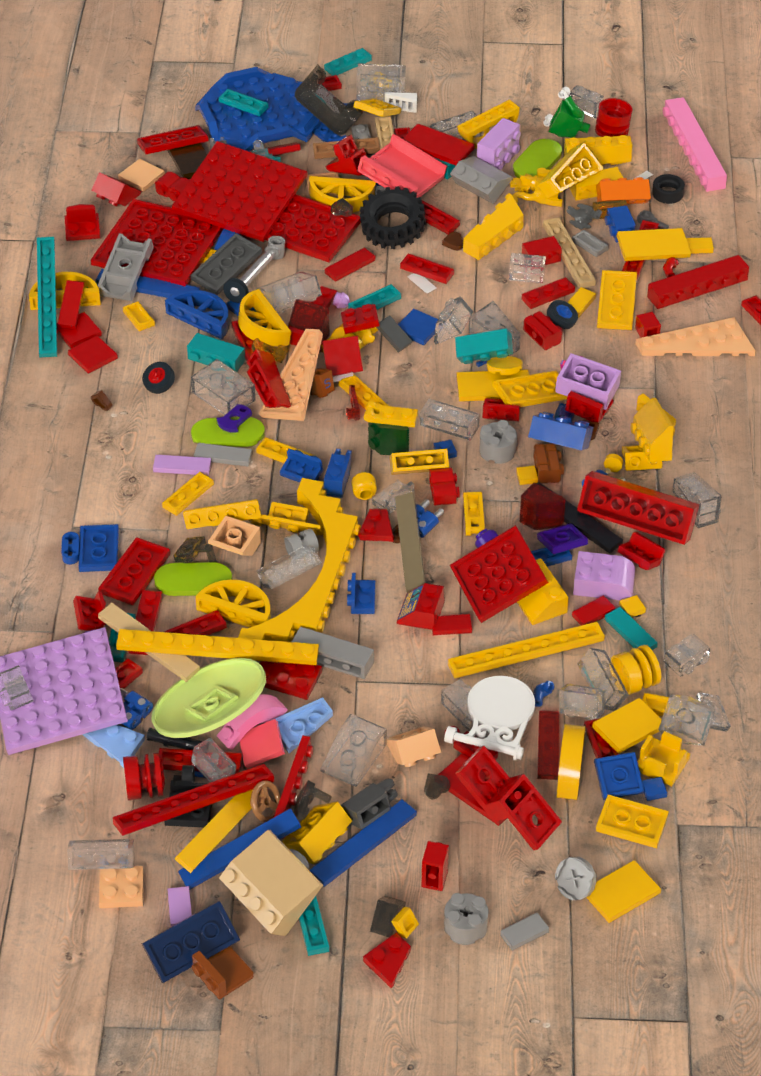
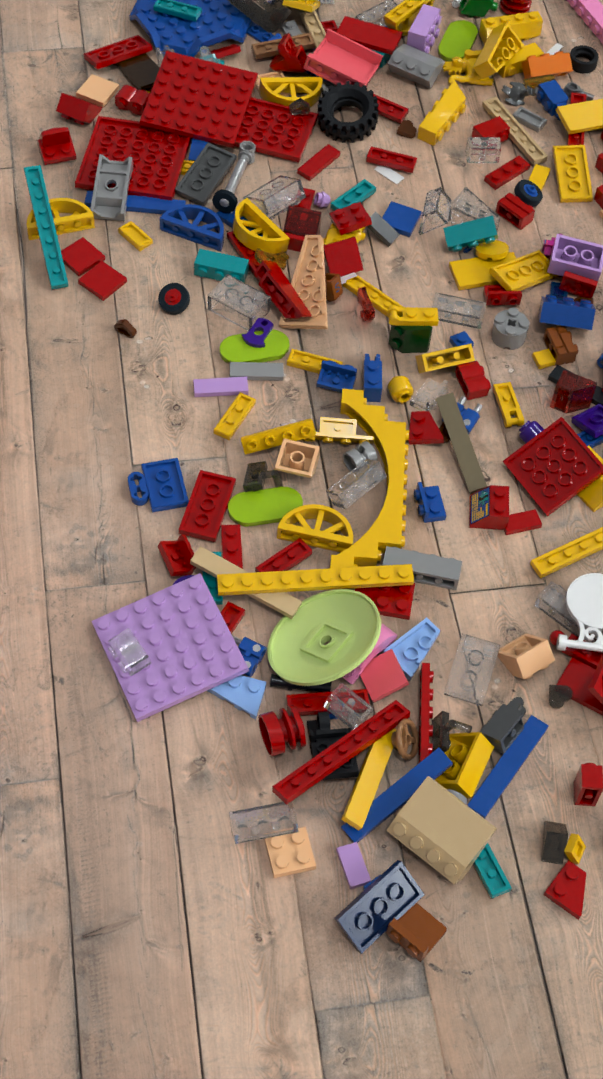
camera: 15 degrees left, 10 degrees up
(71, 304) = (70, 231): red tile -> none

